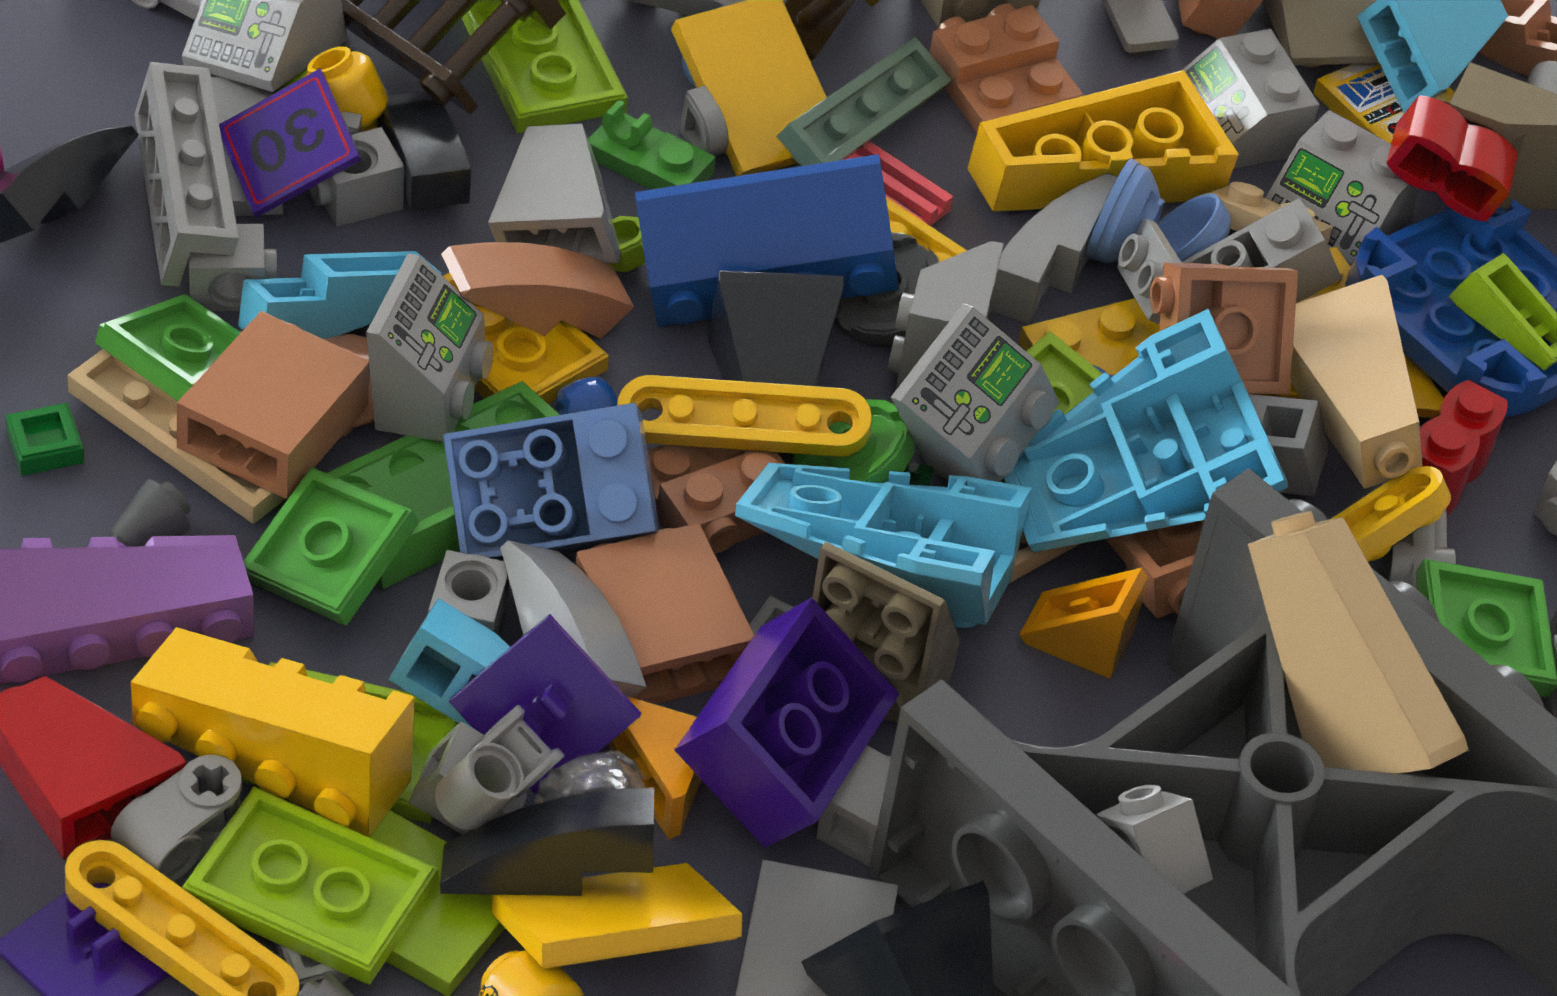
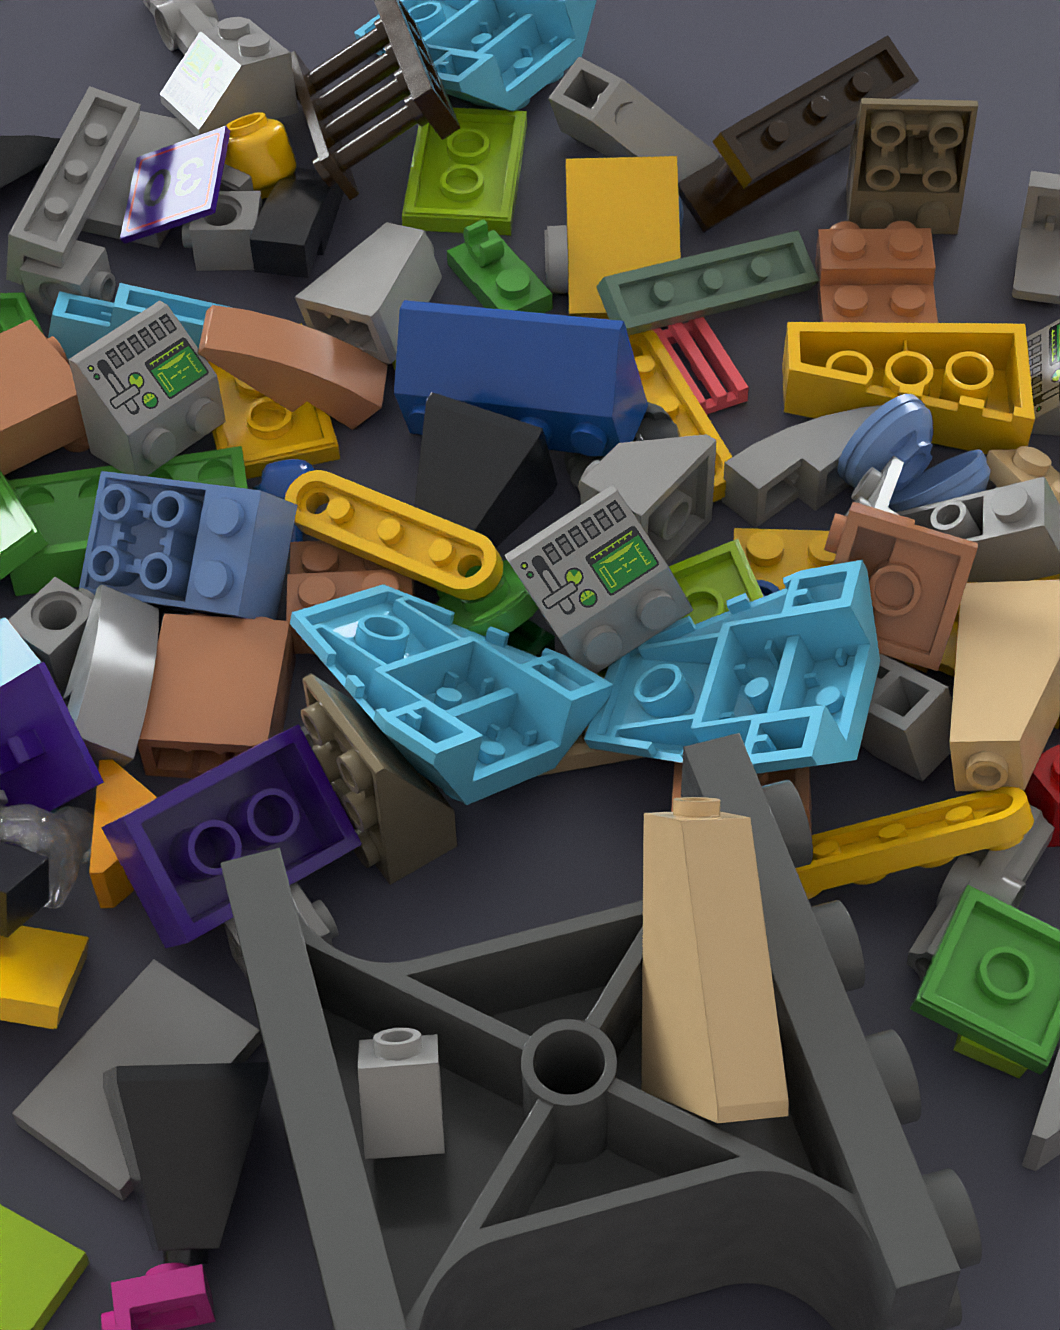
camera: 35 degrees right, 5 degrees up
(1088, 620) = (606, 835): light orange slope -> none

